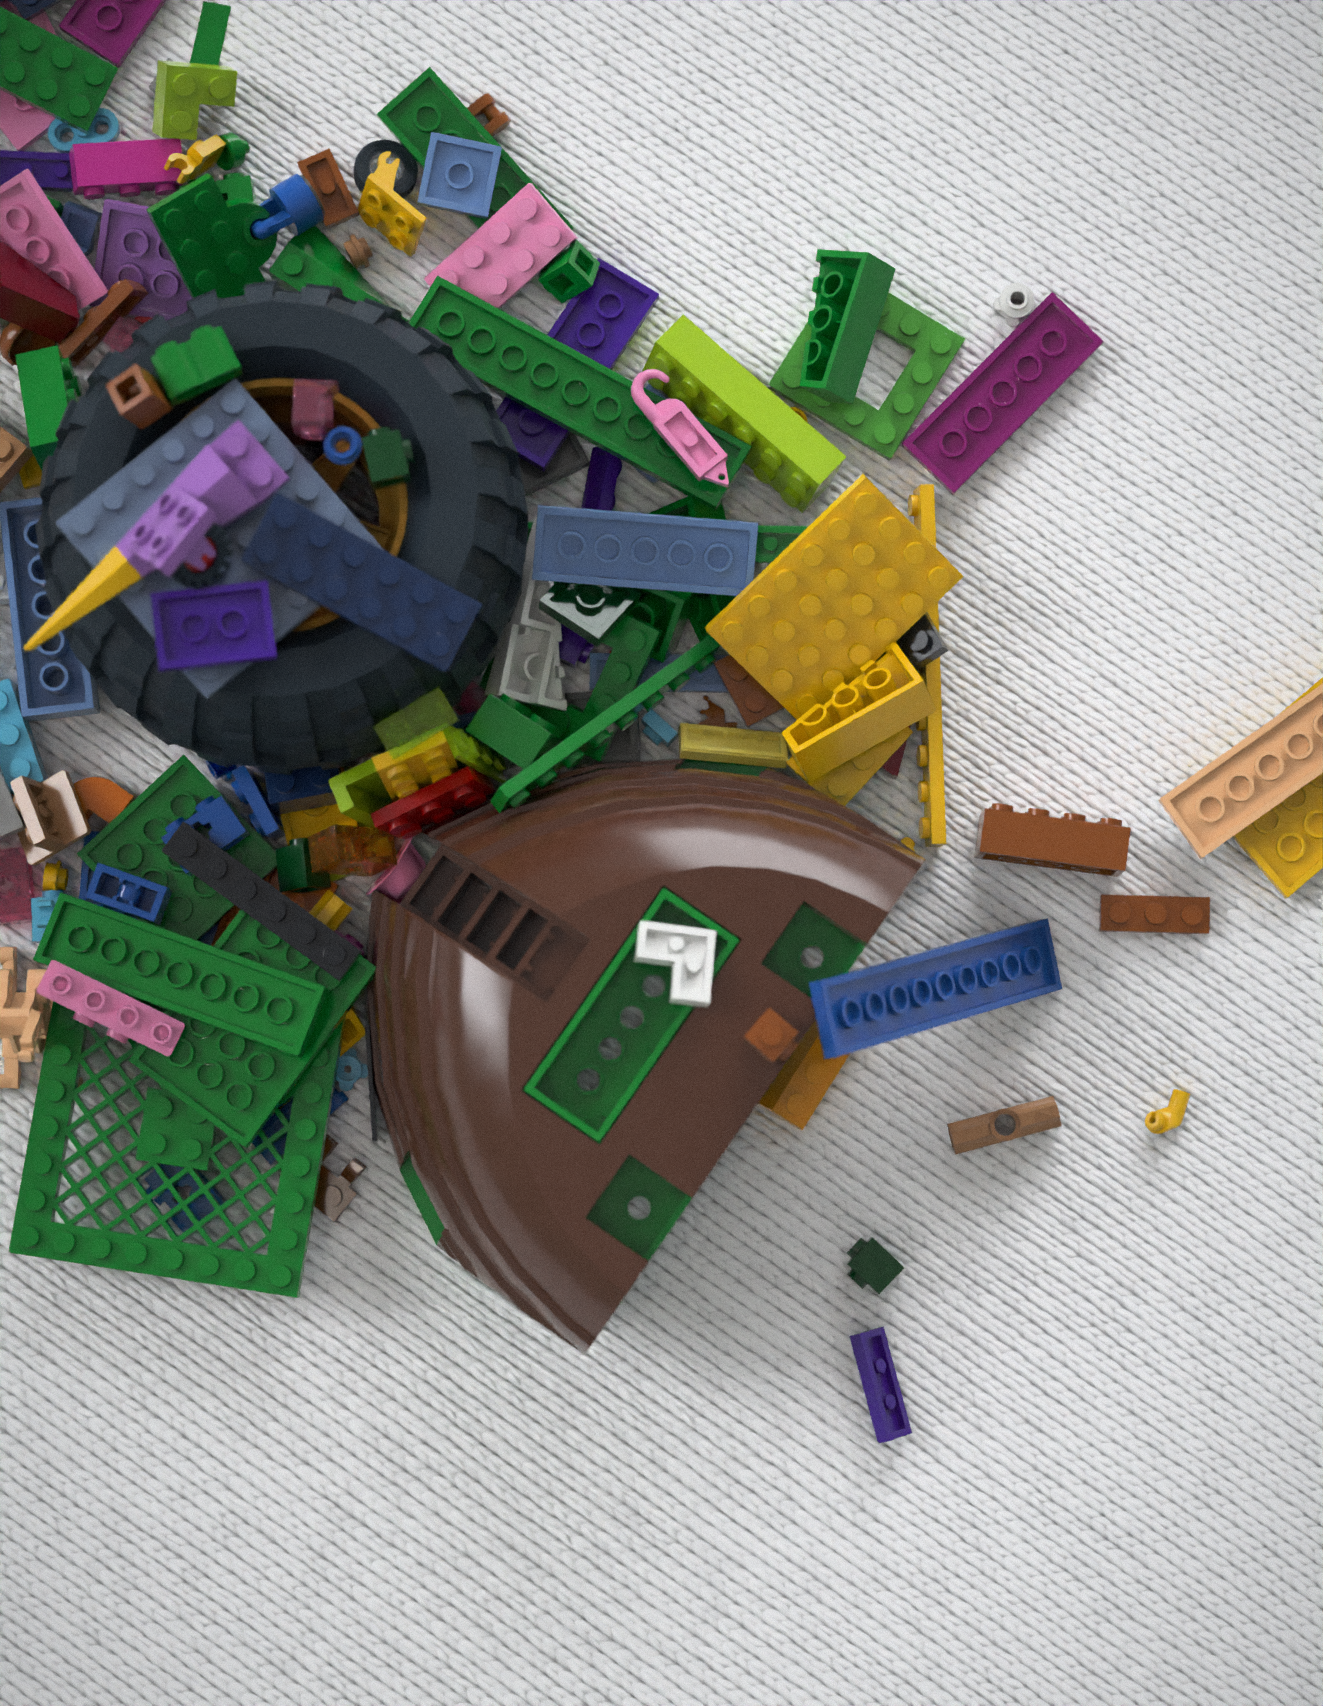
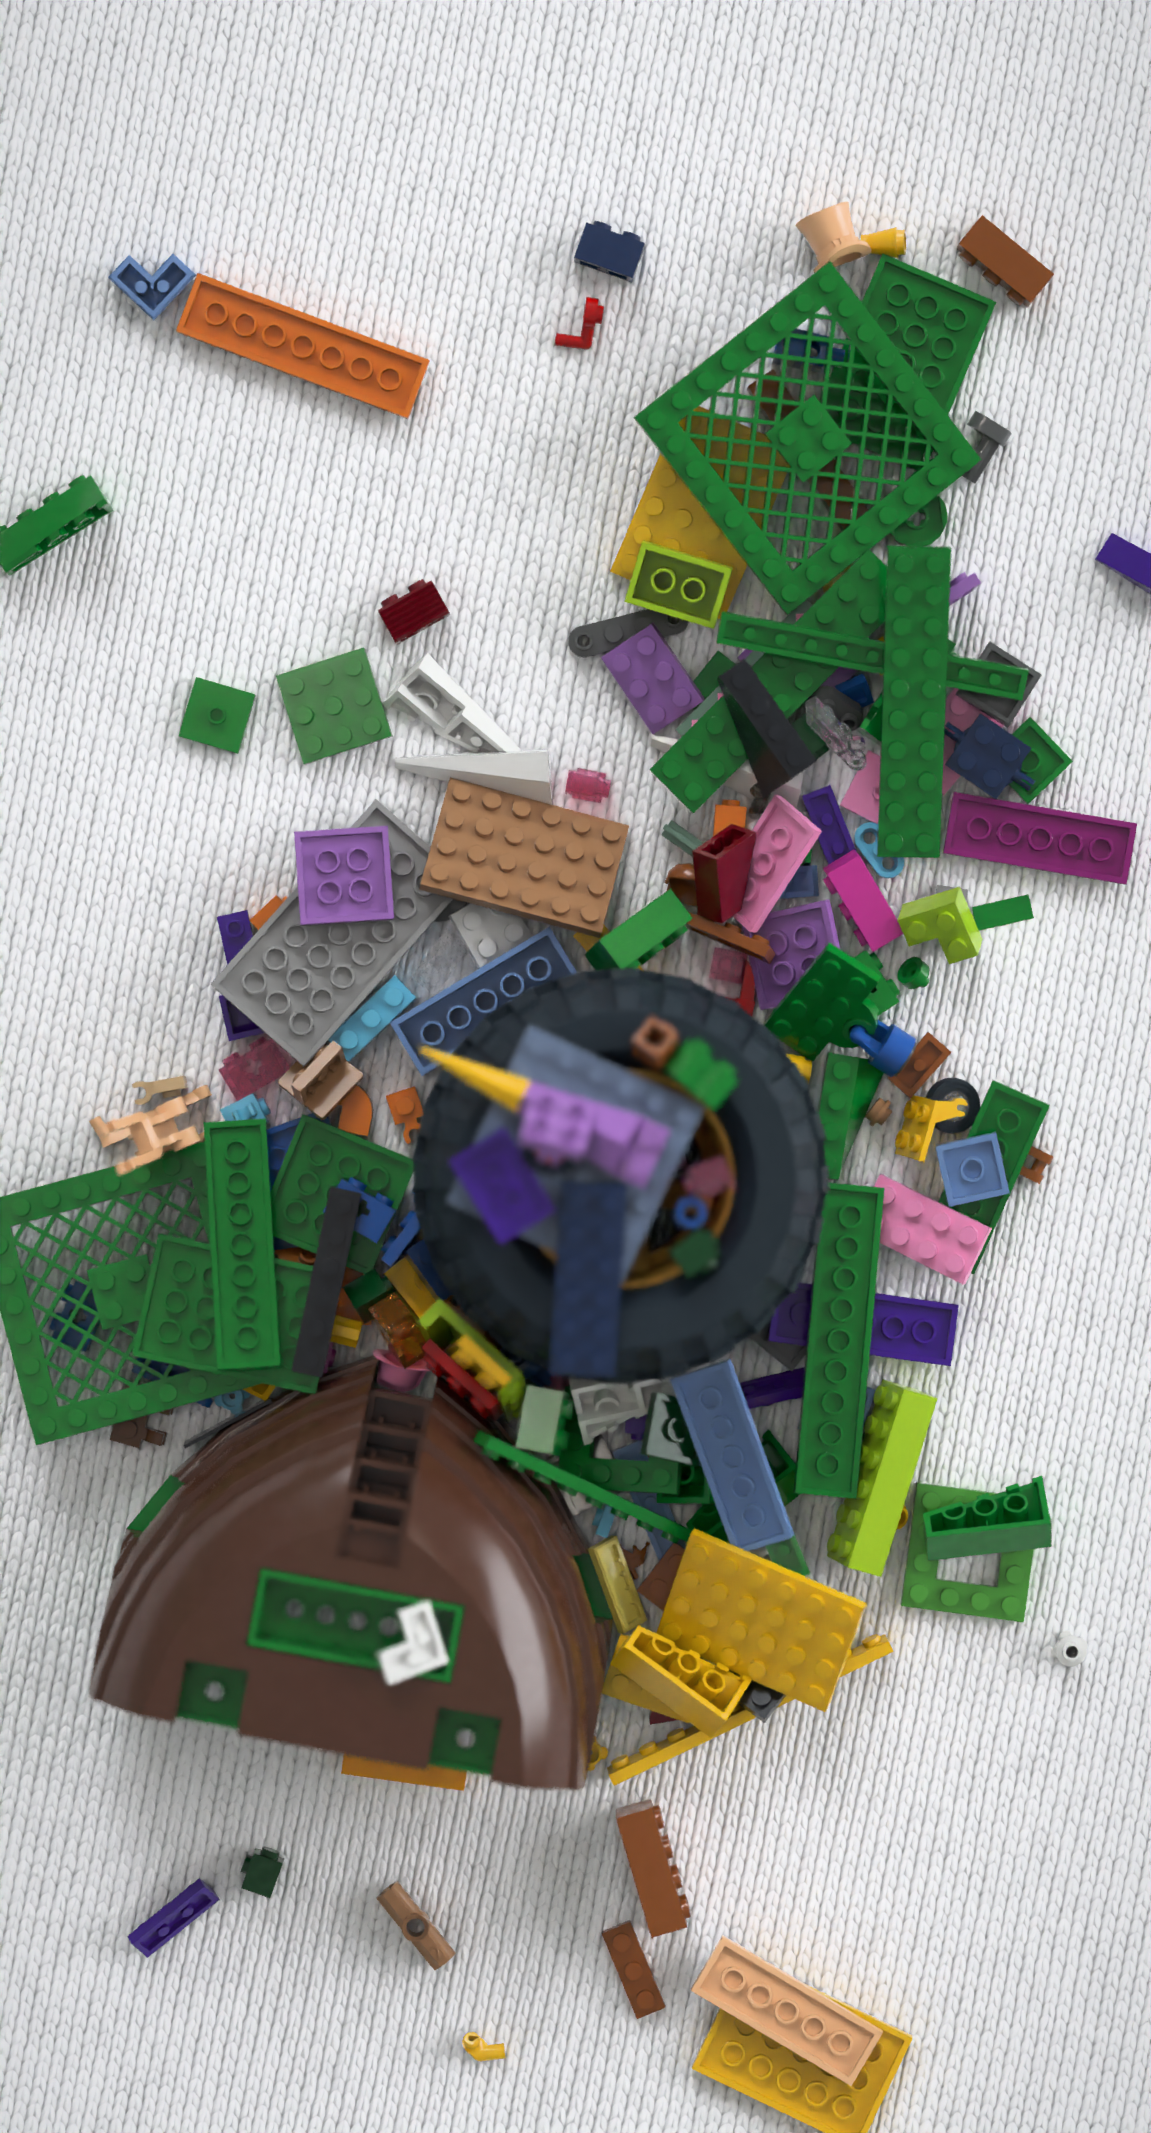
camera: 65 degrees right, 5 degrees up
(55, 876) = (278, 1101): yellow plate -> none
(111, 1008) = (191, 1206): bright pink bracket -> none
(127, 746) = (405, 1109): none -> orange plate
(128, 893) = (287, 1173): blue brick -> none
(198, 159) = (897, 954): yellow plate -> none
(415, 723) = (506, 1358): clear neon green plate -> none
(570, 272) = (935, 1290): green brick -> none
(682, 431) = (842, 1440): bright pink plate -> none
(772, 1036) = (384, 1743): dark orange brick -> none
(934, 987) = (489, 1837): blue plate -> none
(1002, 393) = (992, 1671): magenta plate -> none

